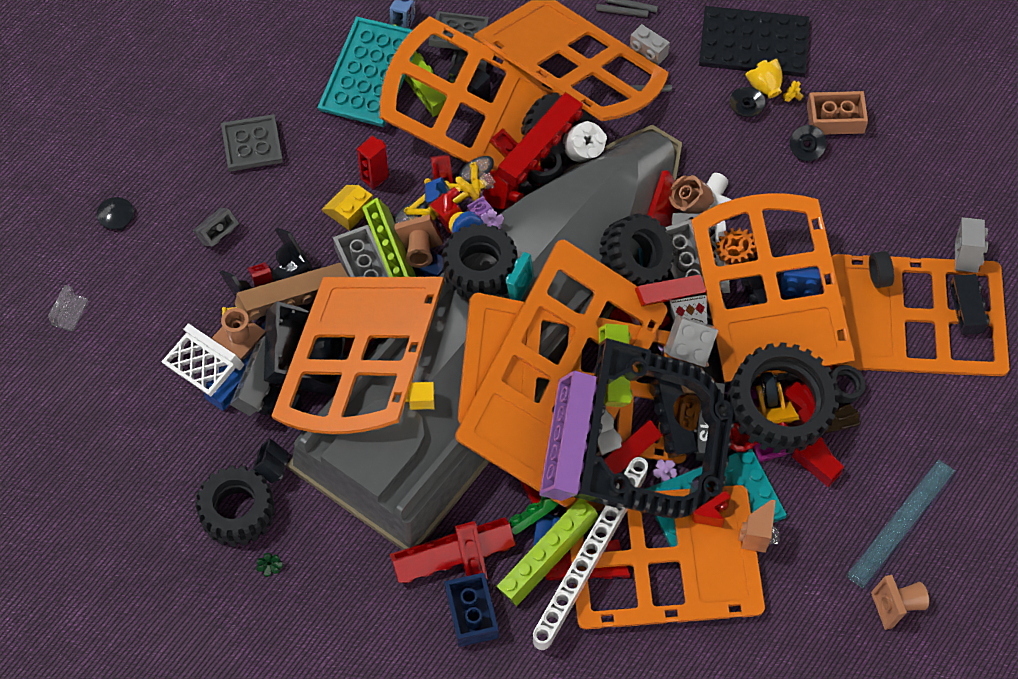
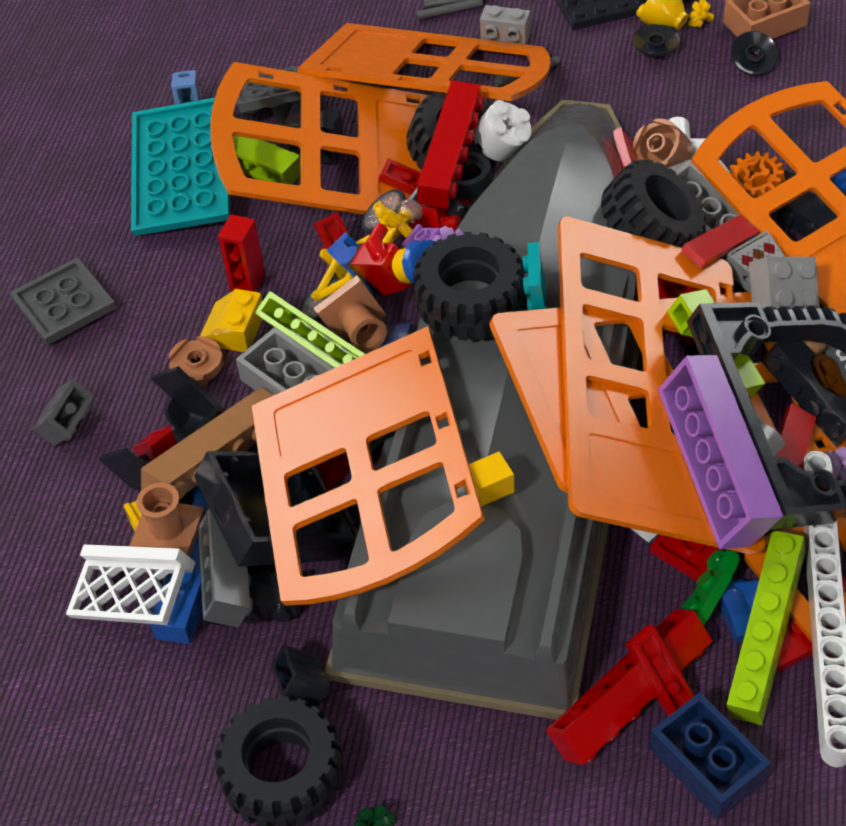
camera: 20 degrees left, 10 degrees down
(317, 232) = (203, 348): none -> nougat plate

